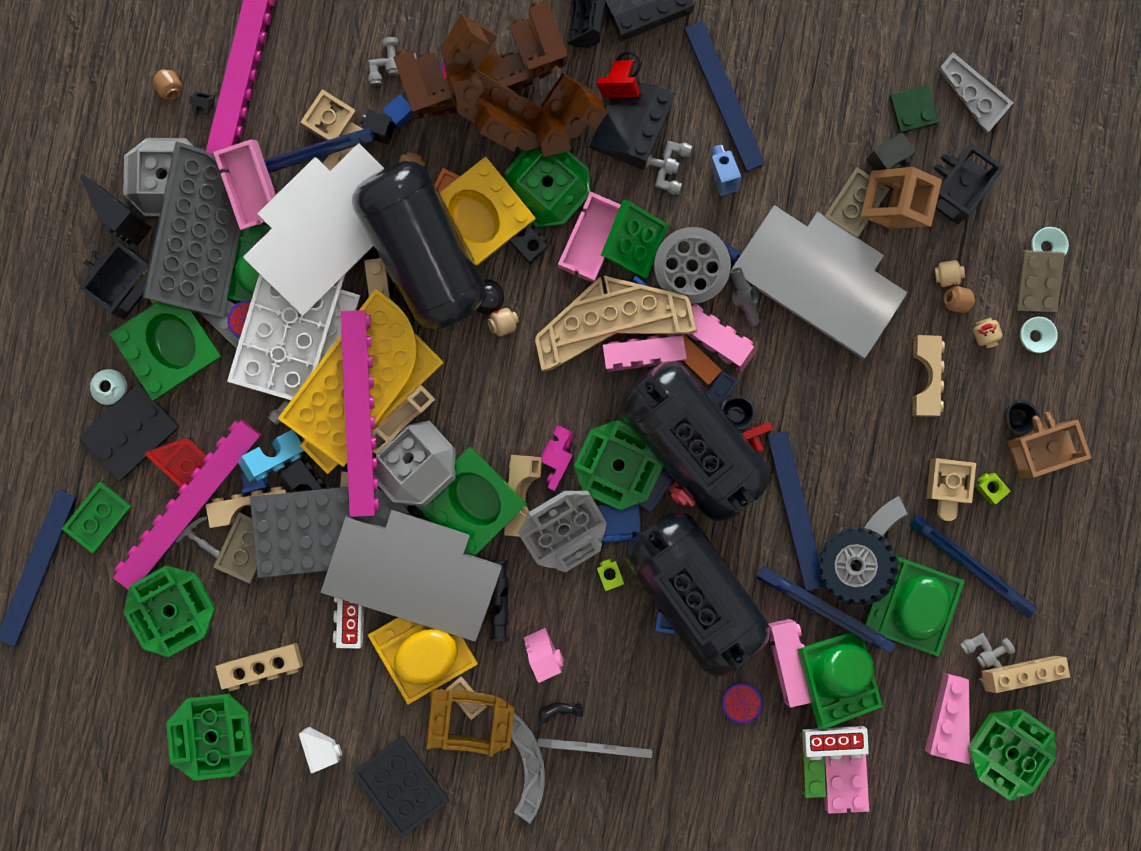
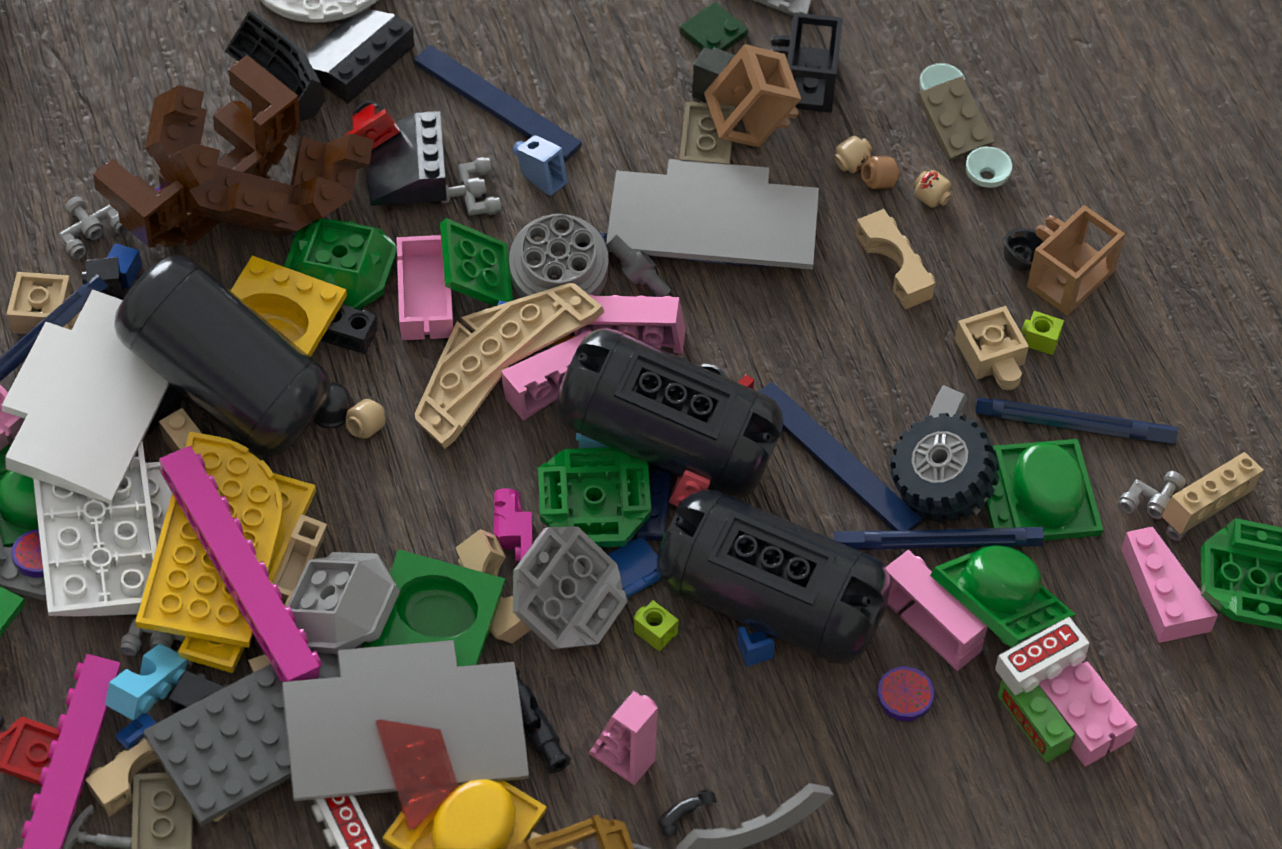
camera: 30 degrees left, 30 degrees down
(405, 610) = (417, 767): none -> clear red wing

